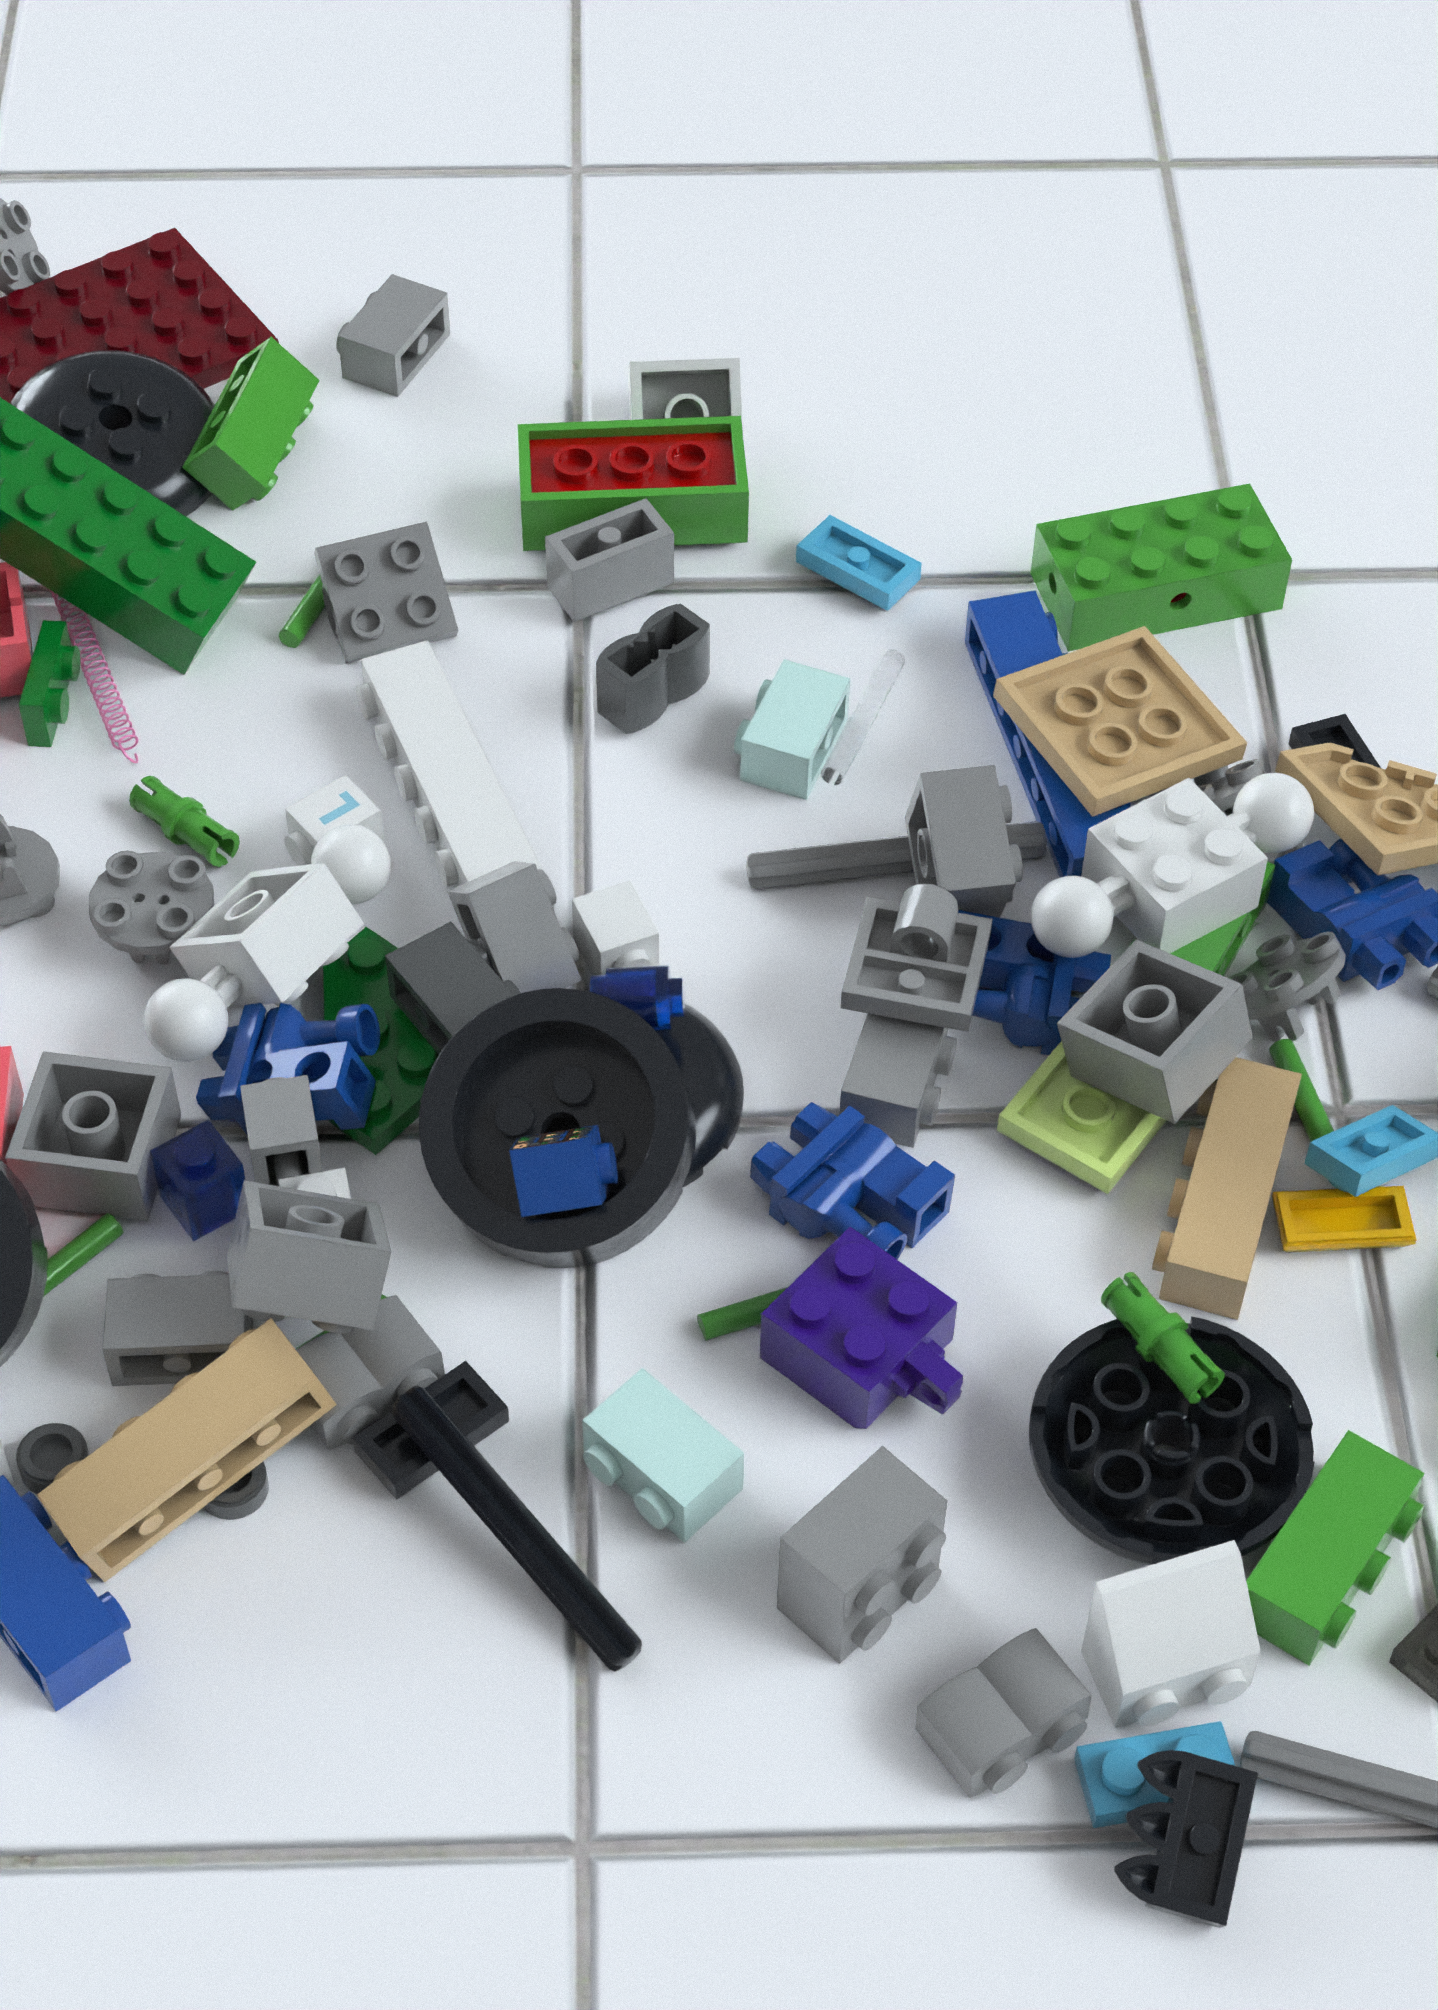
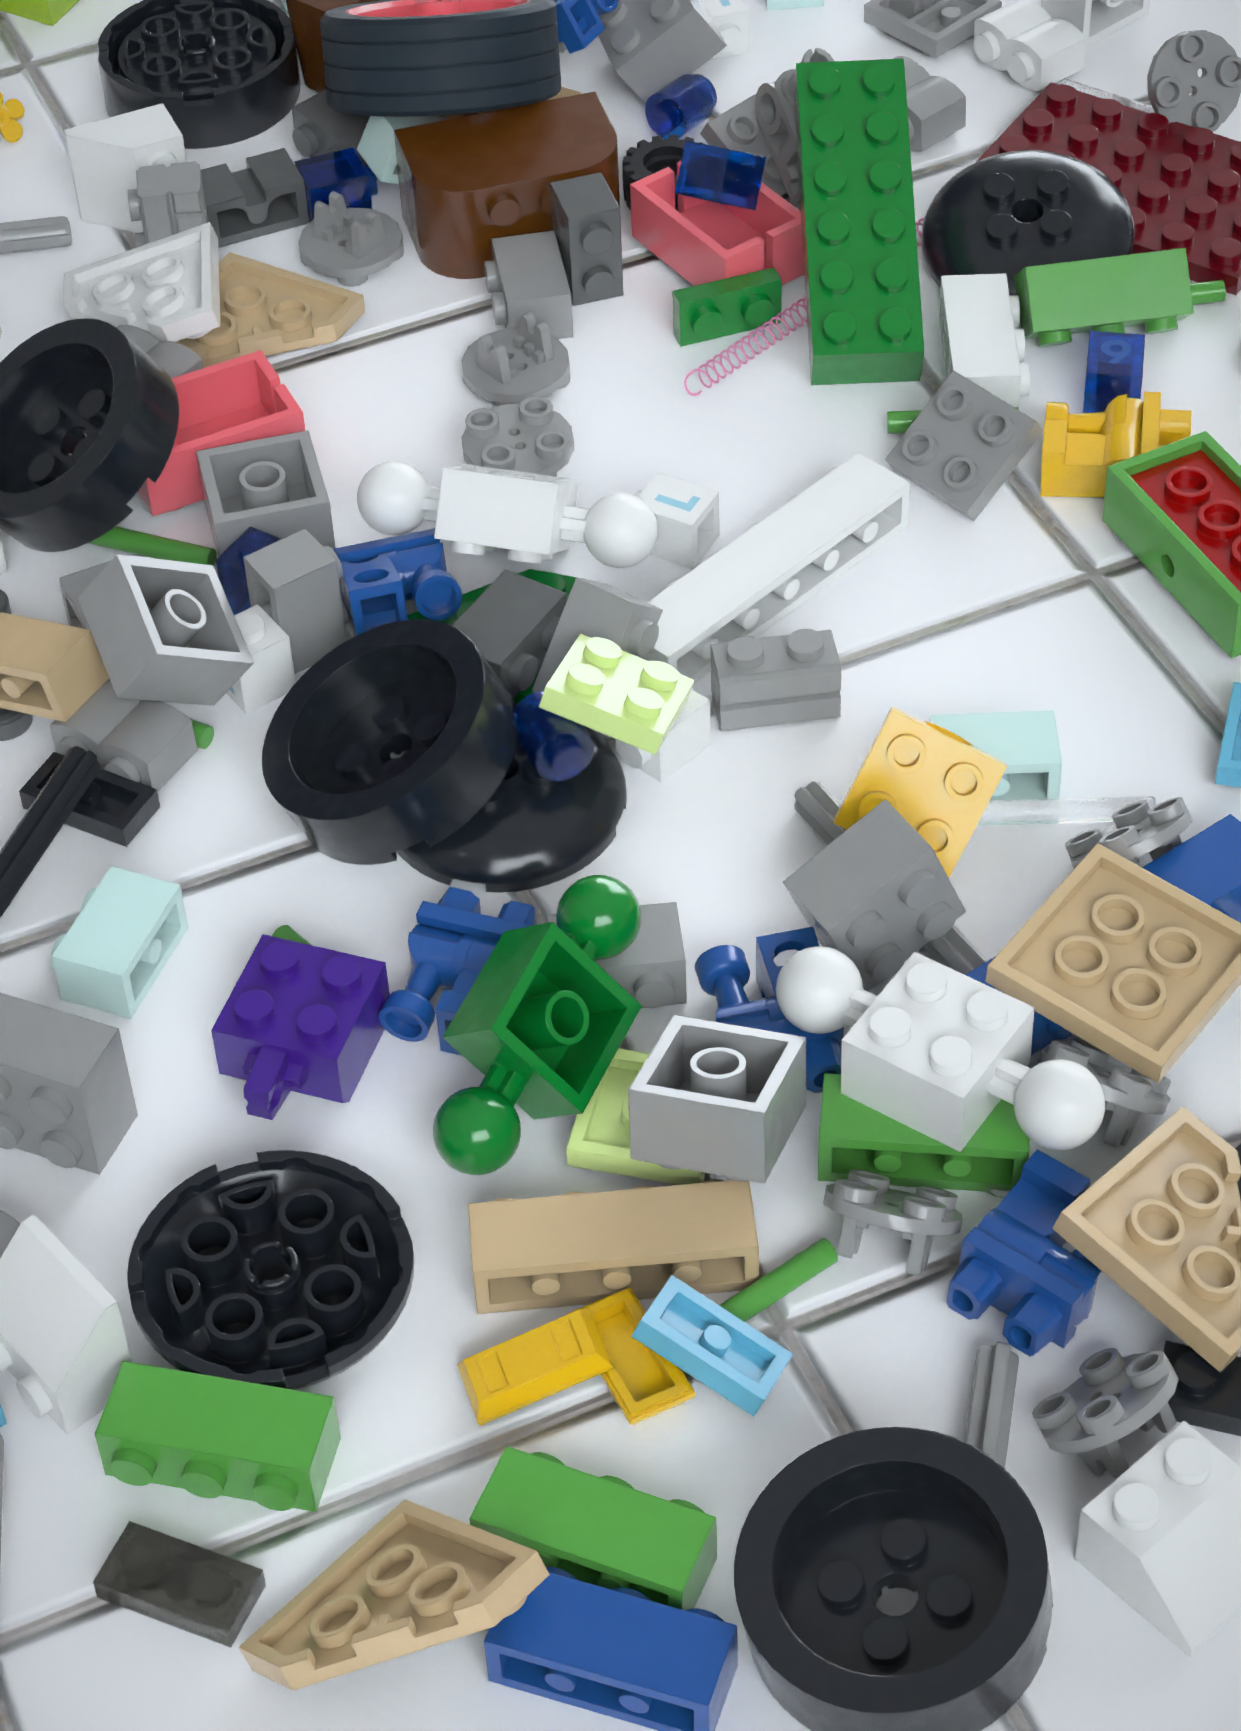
camera: 70 degrees right, 5 degrees down
(184, 821) = (633, 437): bright green pin -> none
(260, 525) = (980, 334): none -> white brick
(354, 464) = (1112, 368): none -> clear blue brick
(455, 496) = (1084, 444): none -> yellow hips
(562, 1170) = (331, 747): blue brick -> none
(608, 828) = (775, 679): none -> light grey brick
(610, 559) = (1106, 562): light grey brick -> none
(623, 926) = (617, 693): none -> yellowish green plate
(653, 668) = (988, 635): dark grey brick -> none
(843, 776) = (929, 778): none -> yellow plate
(917, 959) = (709, 907): light grey plate -> none
(950, 676) = (1136, 831): none -> light grey plate
(989, 1133) = (539, 1024): none -> green brick
(1162, 1337) = (359, 1213): bright green pin -> none
(1331, 1289) = (534, 1365): none -> yellow tile

